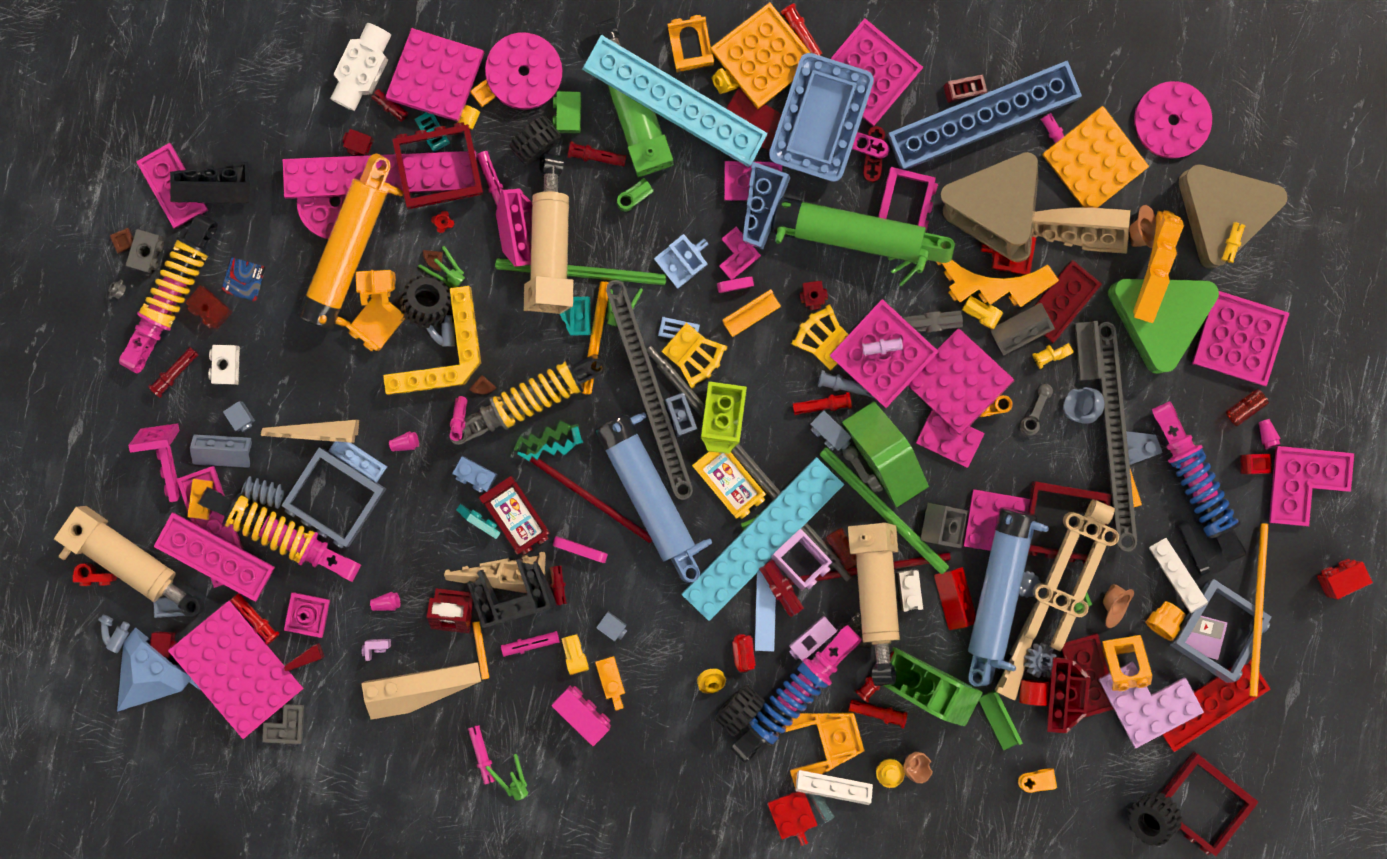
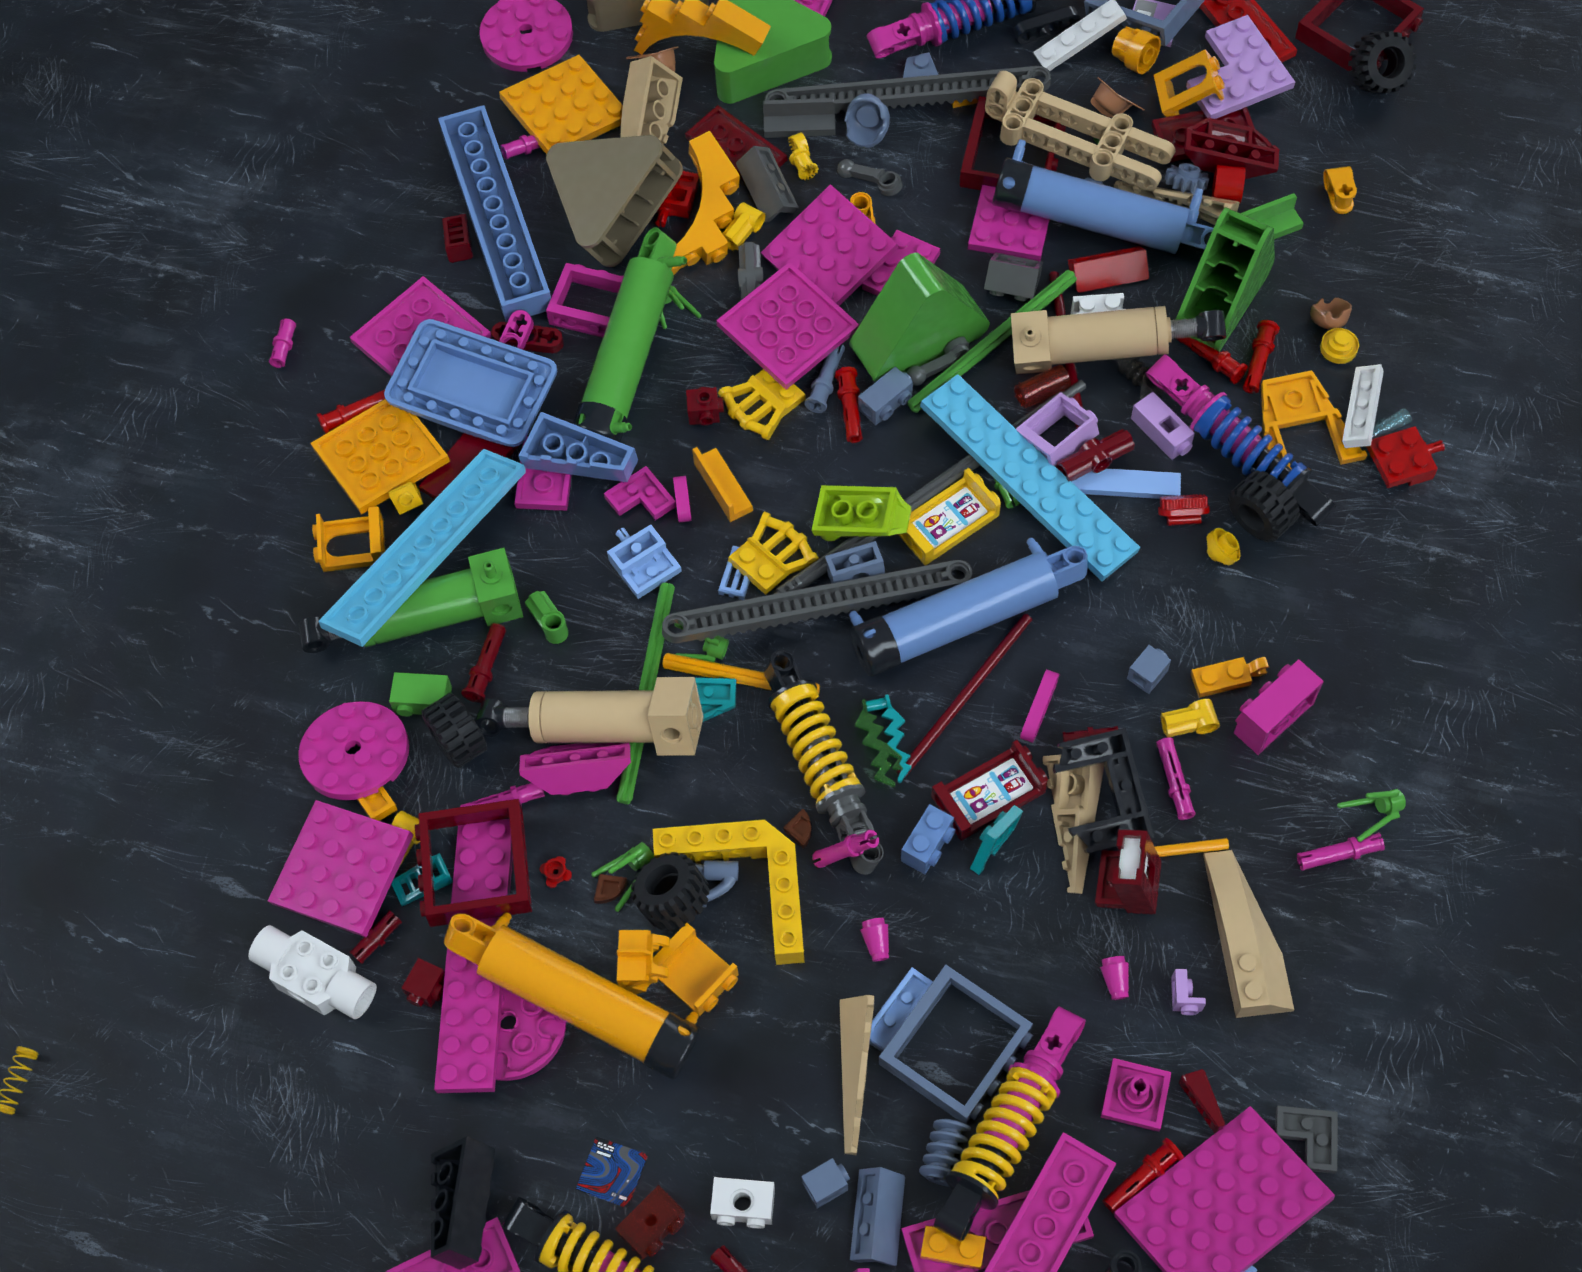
camera: 90 degrees left, 25 degrees down
(882, 346) = (779, 318): lavender pin -> none

